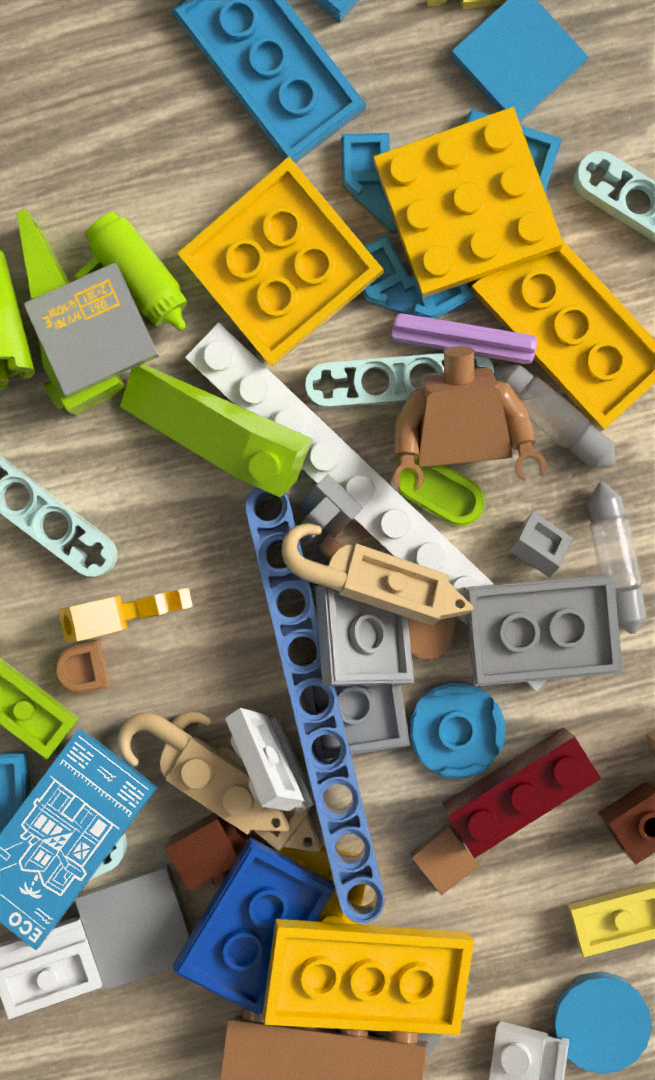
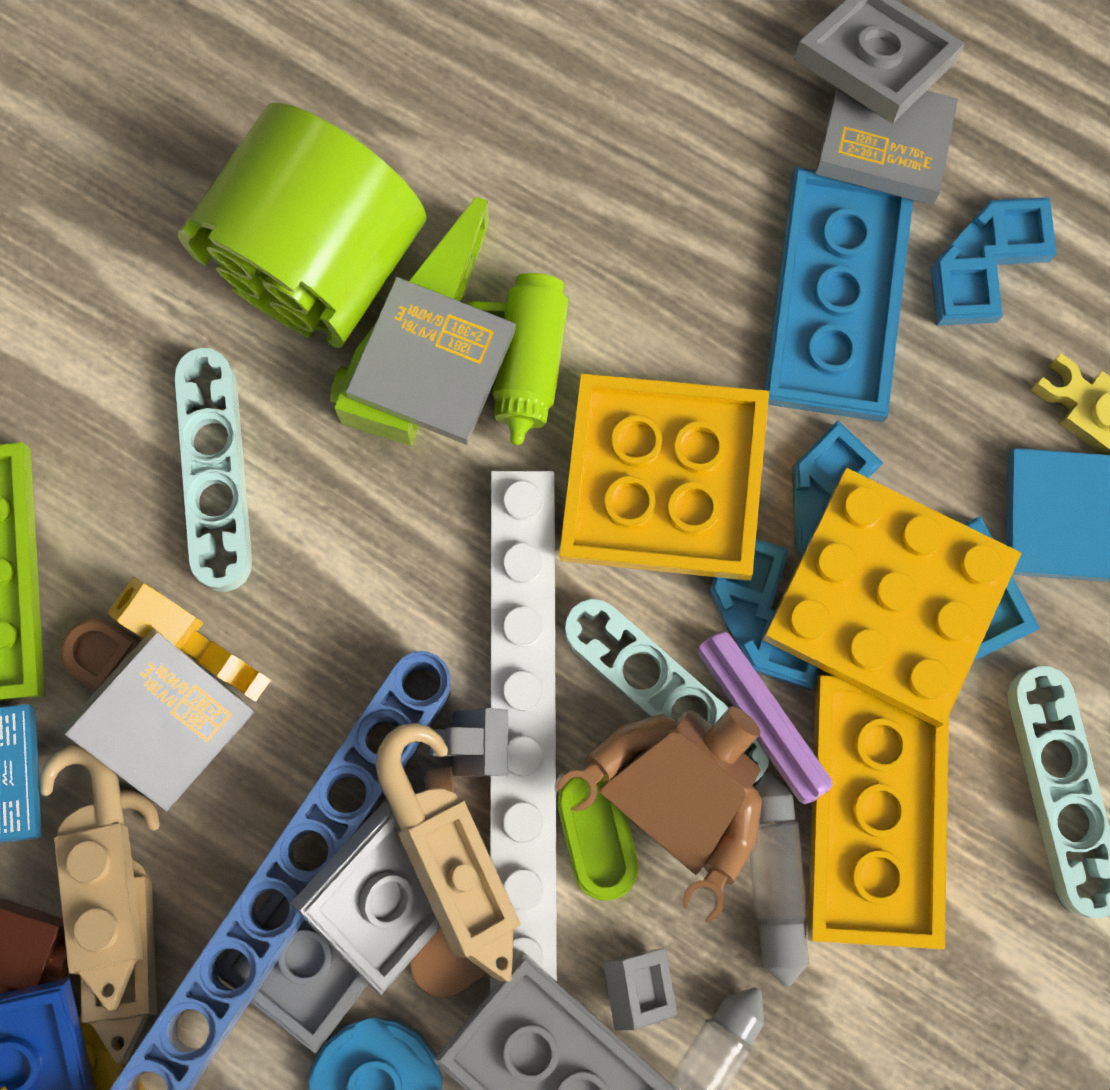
camera: 40 degrees right, 10 degrees down
(152, 667) = (158, 719): none -> tile
(218, 430) = (450, 568): lime slope -> none
(270, 761) = (165, 924): white plate -> none

